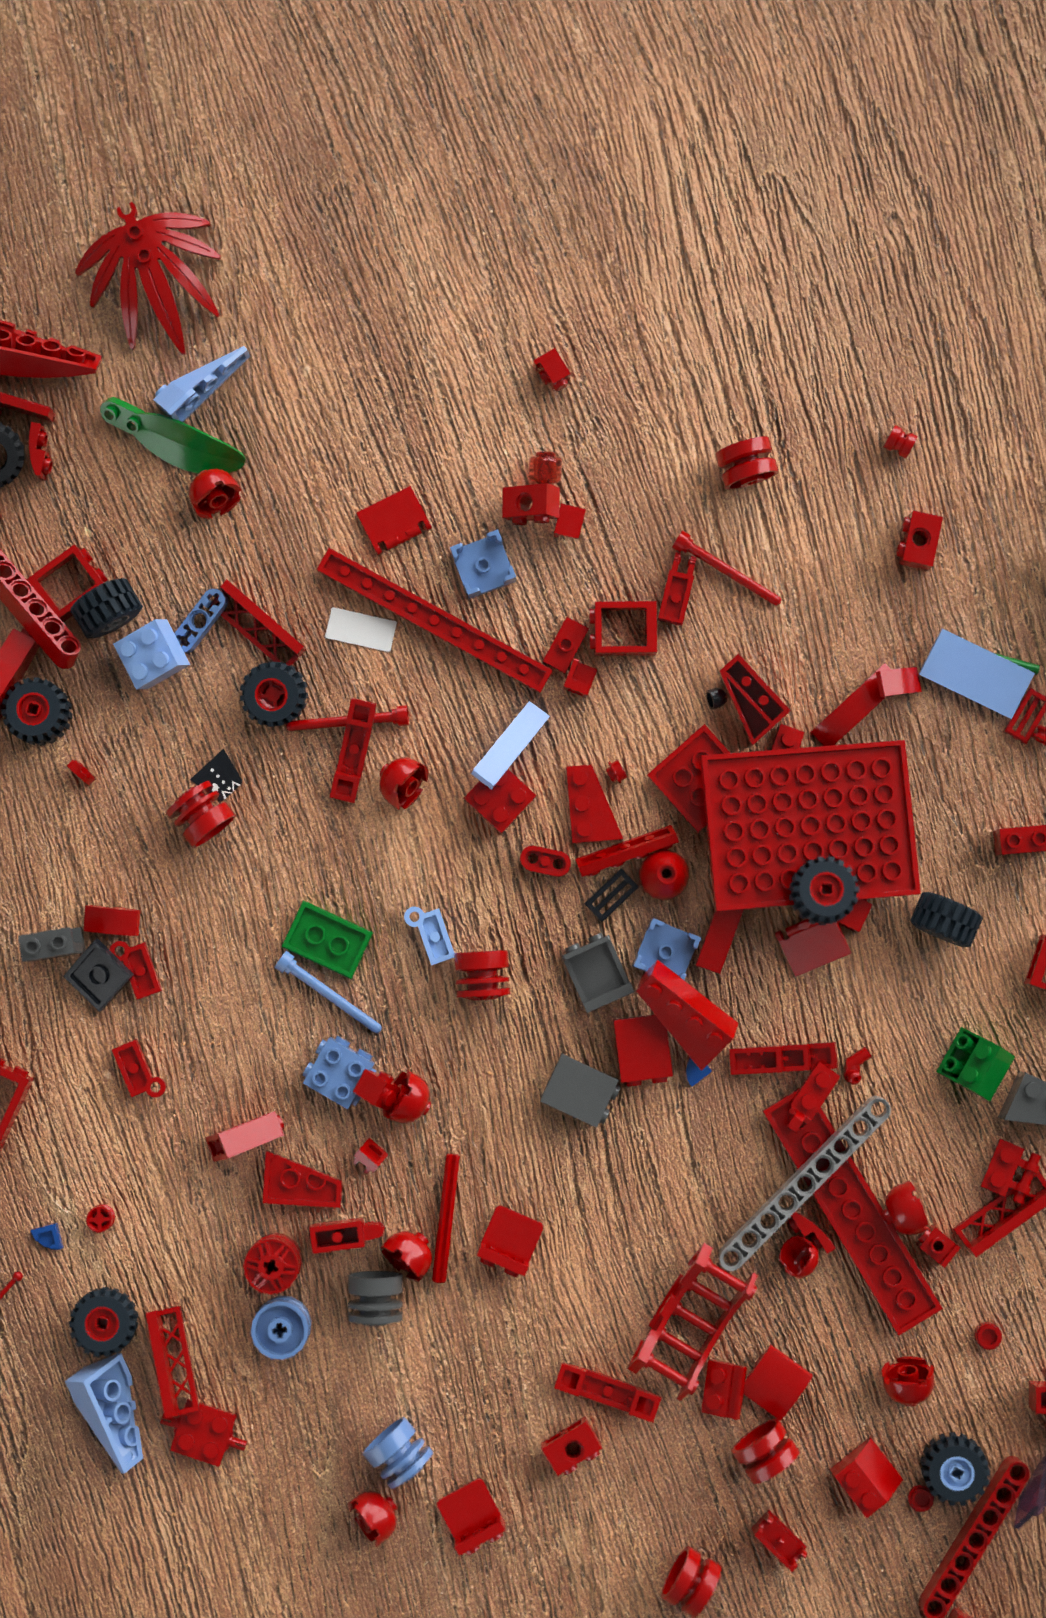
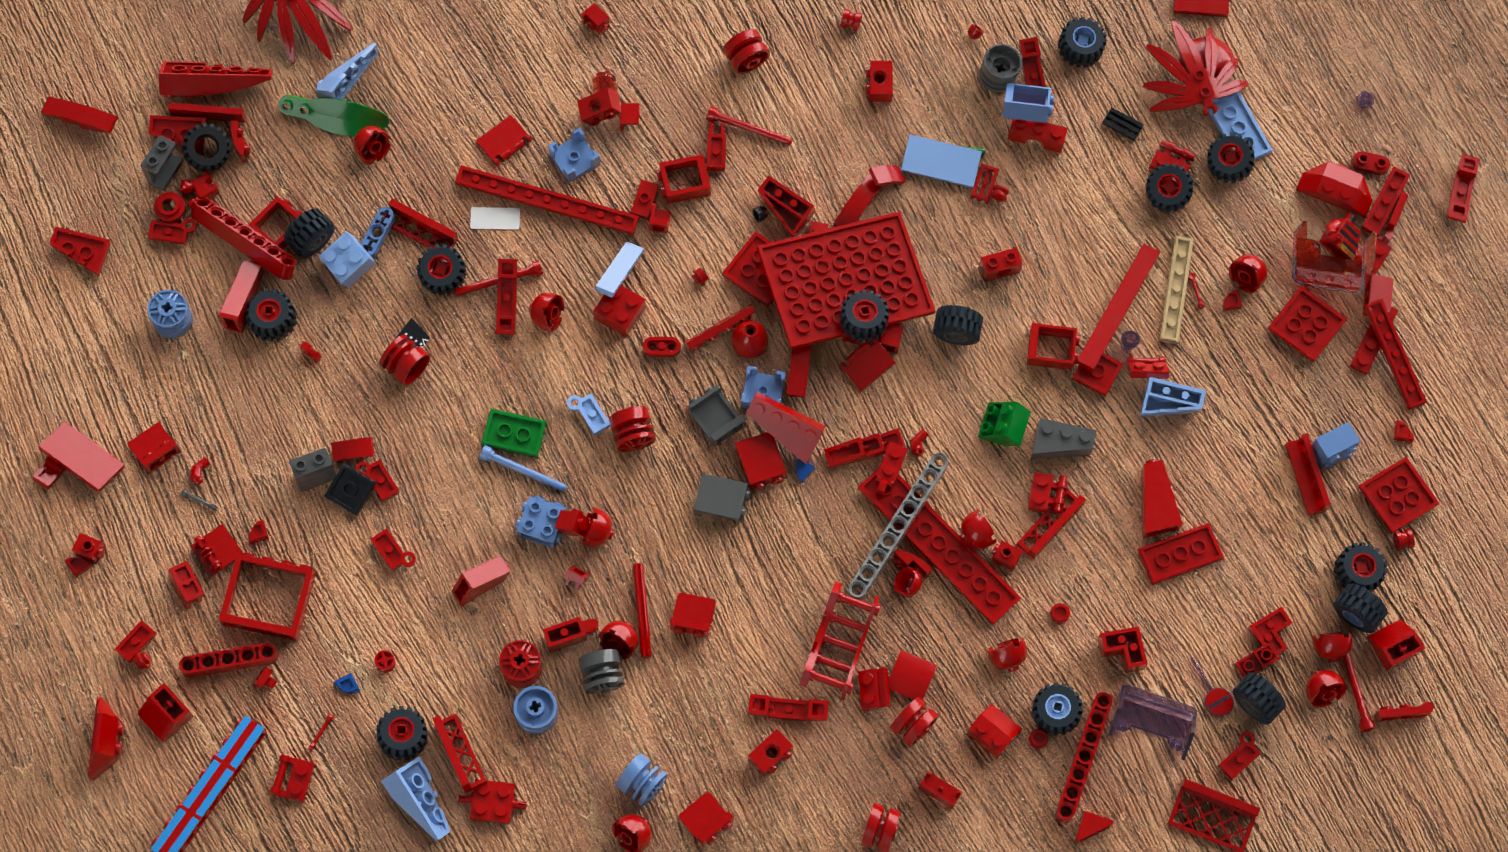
camera: 10 degrees left, 15 degrees down
(297, 1184) = (528, 608): red wing -> none
(589, 809) = (685, 305): red wing -> none
(595, 910) = (711, 378): black tile -> none

